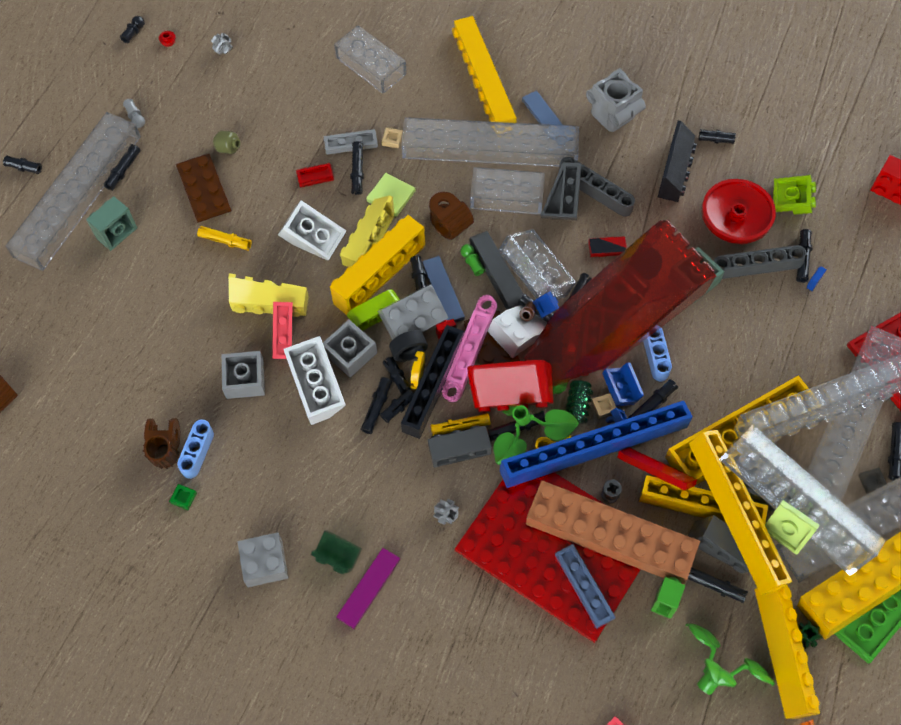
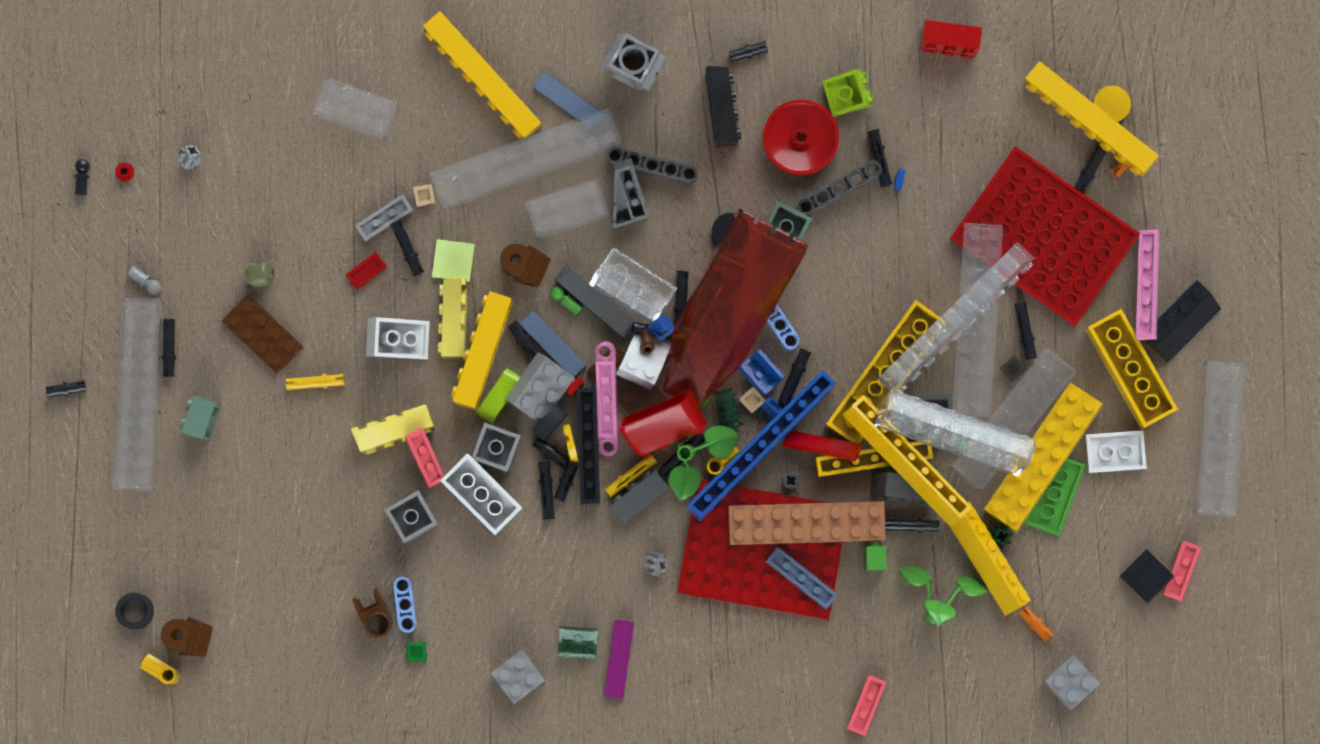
camera: 30 degrees left, 20 degrees up
(607, 246) = (689, 228): tile -> none
(790, 527) = (954, 458): yellowish green tile -> none

